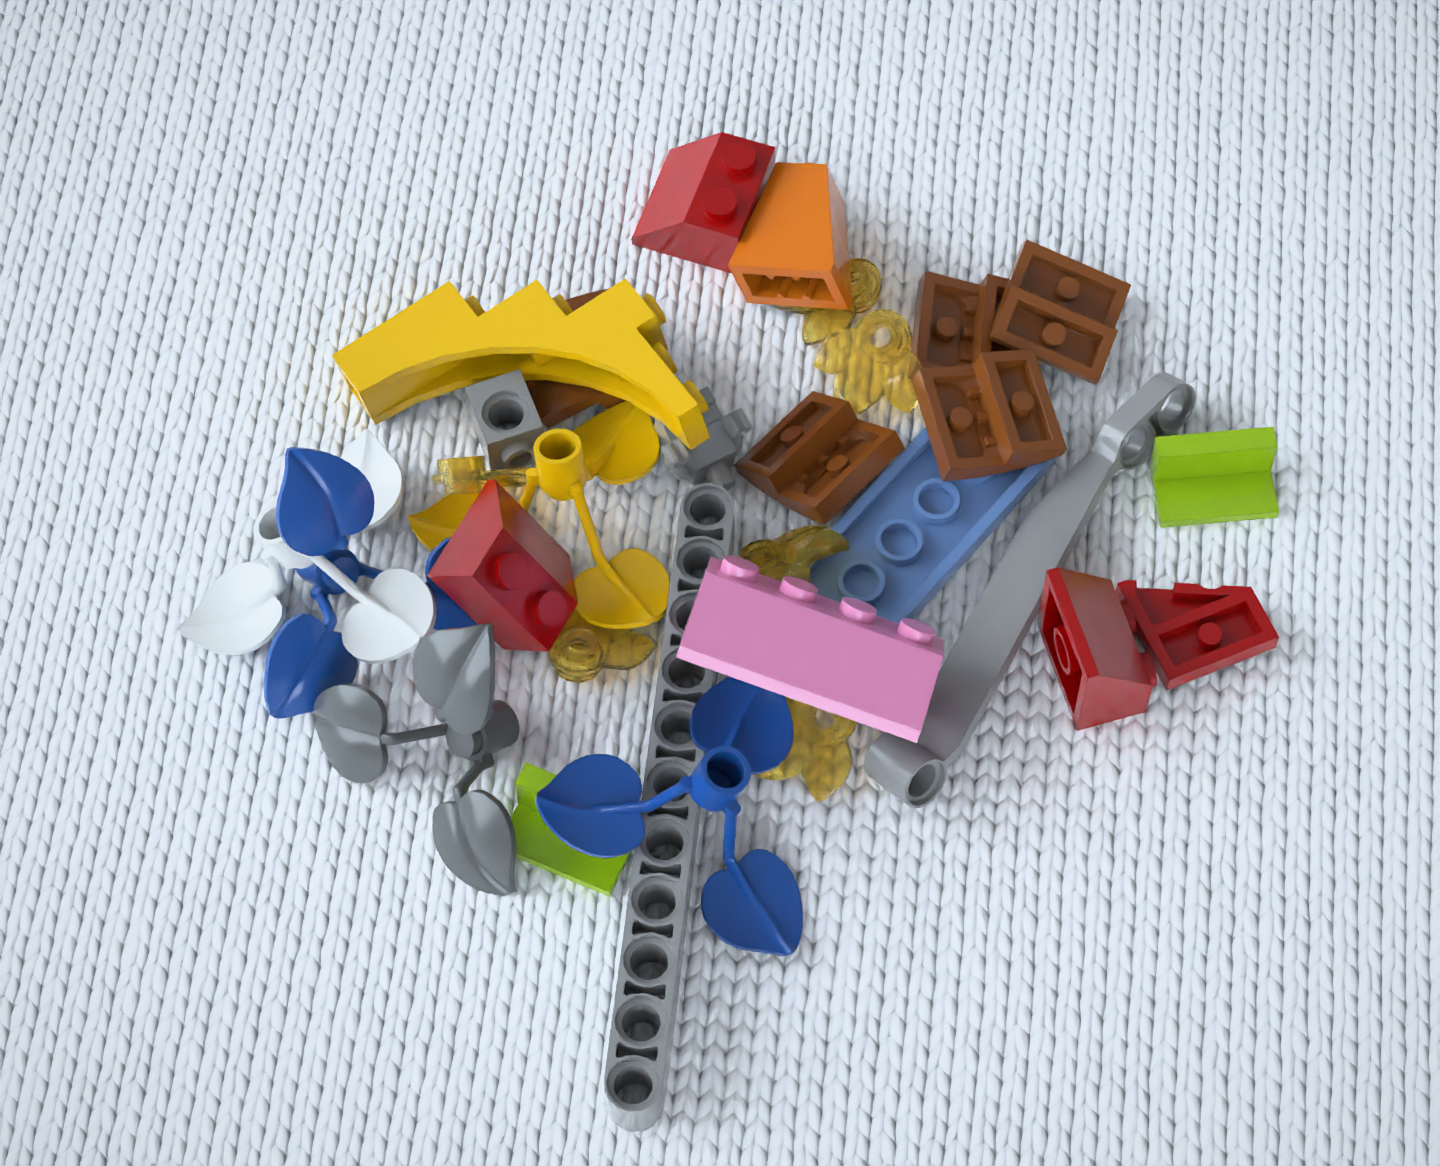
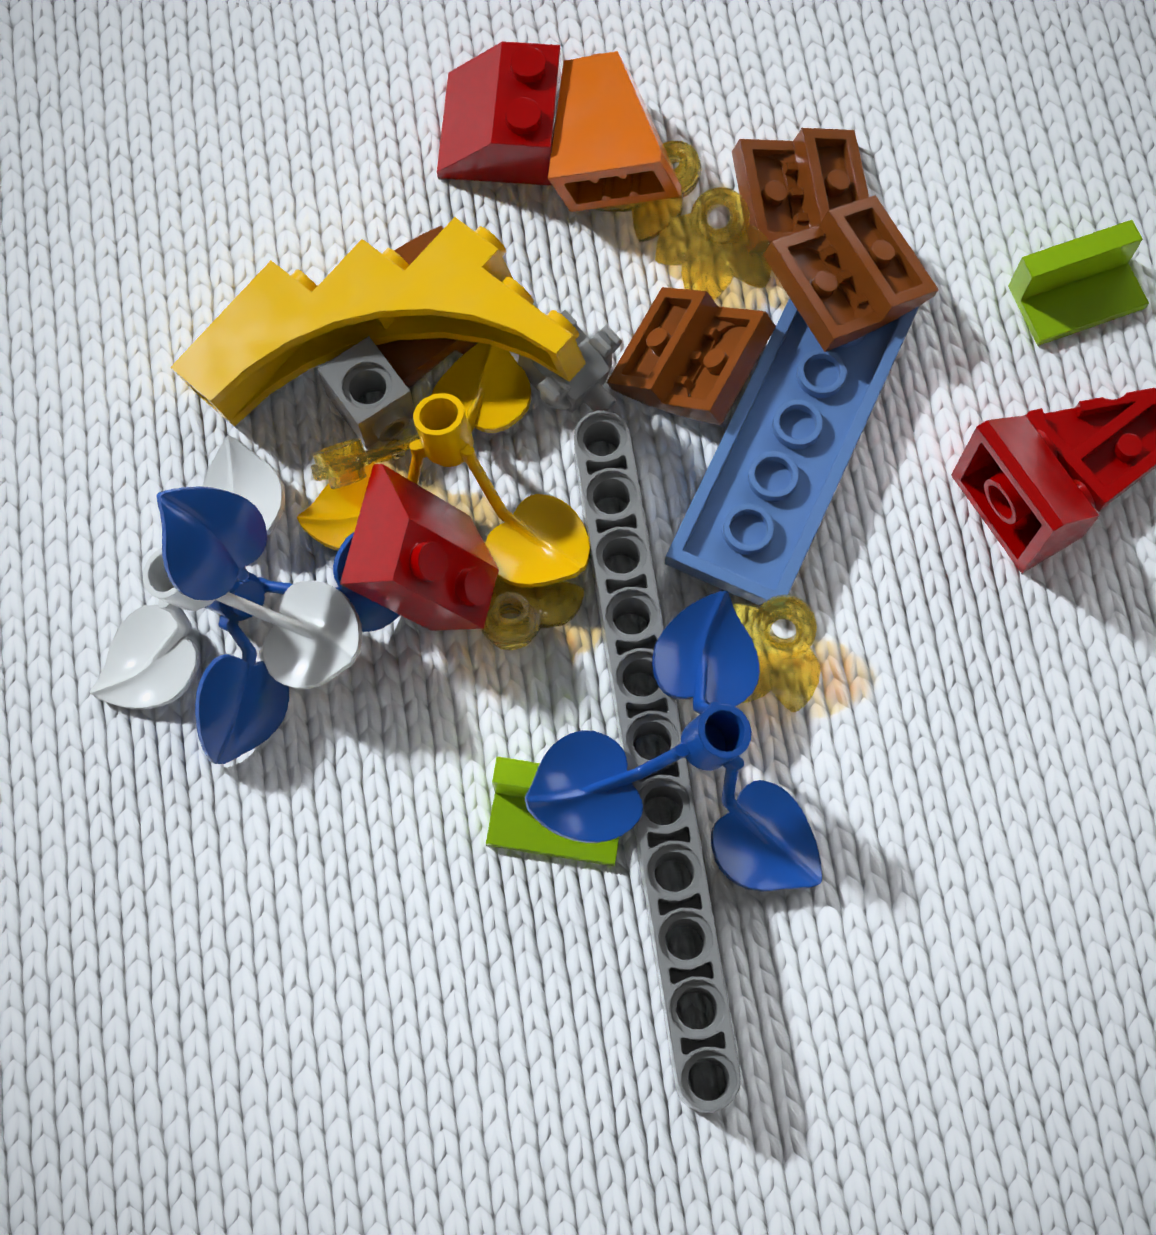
camera: 15 degrees left, 10 degrees up
(458, 677) = (419, 708): plant -> none
(794, 551) = (694, 468): clear yellow plate -> none
(813, 647) = (762, 567): bright pink slope -> none
(1015, 593) = (887, 644): light grey piece -> none
(1060, 311) = (882, 149): dark orange slope -> none

